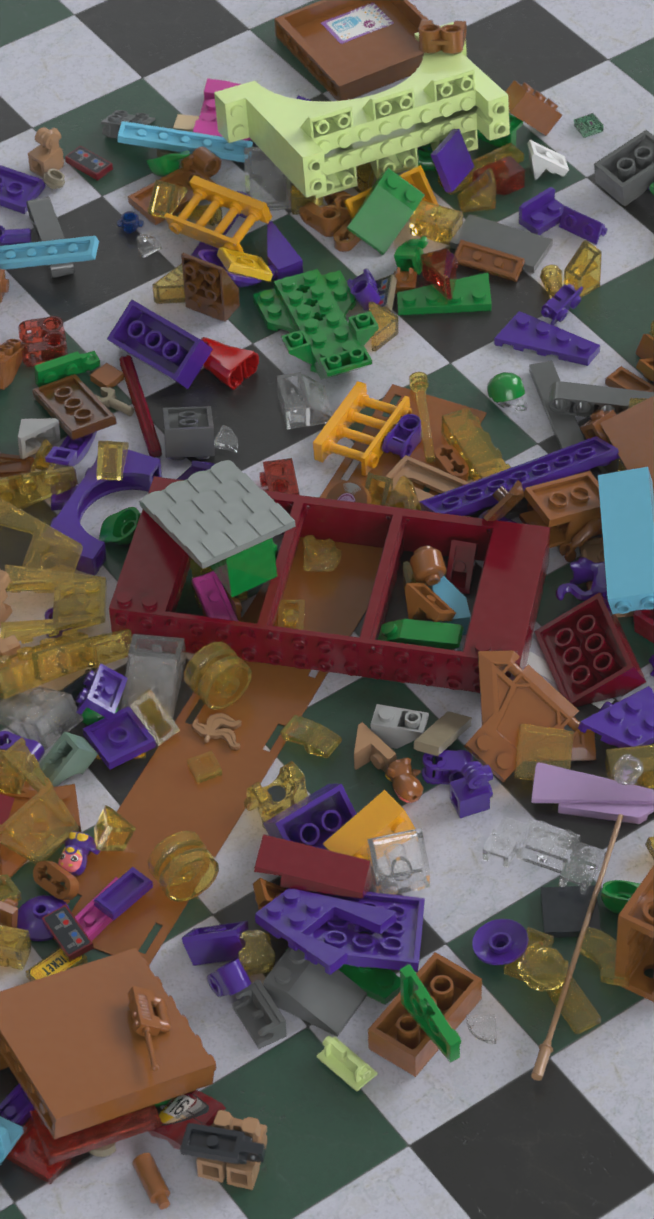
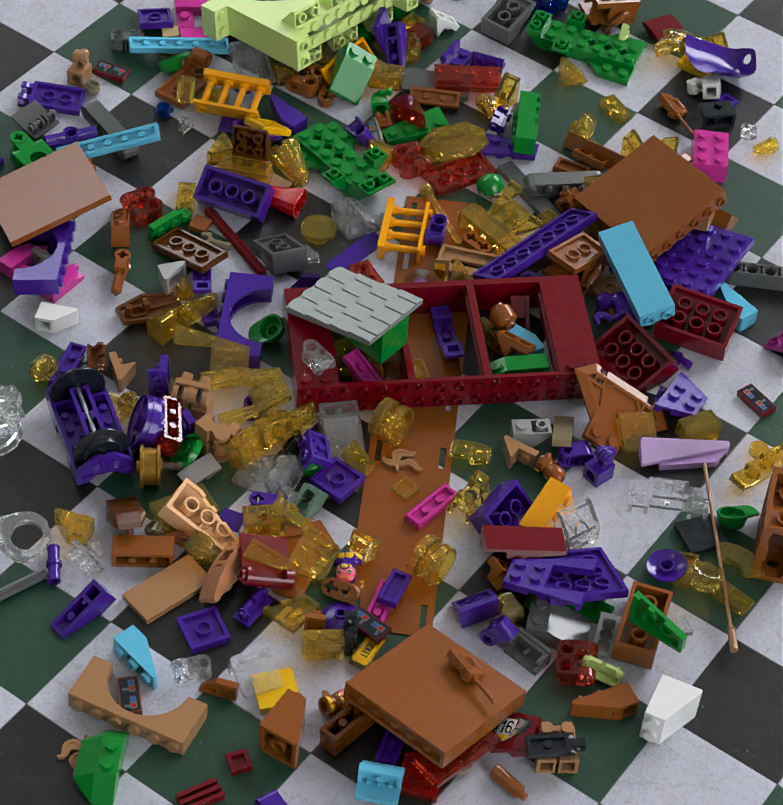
camera: 25 degrees left, 0 degrees up
(31, 936) = (350, 623): none -> black hinge
(98, 340) = (185, 196): none -> clear yellow plate
(111, 459) = (241, 282): clear yellow slope -> none
(145, 571) = (316, 357): none -> clear piece
(174, 103) = (154, 18): none -> dark purple tile
(194, 316) = (247, 167): none -> clear yellow brick
(222, 799) = (430, 507): none -> dark pink tile
(252, 313) = (290, 161): none -> clear yellow cone
(254, 407) = (318, 228): none -> clear yellow tile
(287, 448) = (355, 252): none -> dark purple sticker
(308, 1034) = (567, 657): none -> clear red piece
(320, 555) = (420, 325): clear yellow hair -> none
(332, 1108) = (610, 703): none -> dark orange slope
(353, 573) = (445, 332): none -> dark purple slope
(371, 1007) = (606, 633): none -> light grey slope
(402, 1135) = (669, 709): none -> white slope
(407, 334) = (405, 160): none -> clear red piece
(462, 181) = (395, 43): none -> dark purple slope
(471, 365) = (457, 173): none -> clear red piece
(482, 323) = (453, 142): none -> clear yellow wedge
(506, 501) = (542, 261): reddish brown piece -> none
(517, 435) = (515, 216): none -> clear yellow wing
(539, 240) = (467, 78): none -> clear red piece
(588, 313) = (525, 123): none -> green wedge
(627, 770) = (702, 430): clear piece -> none

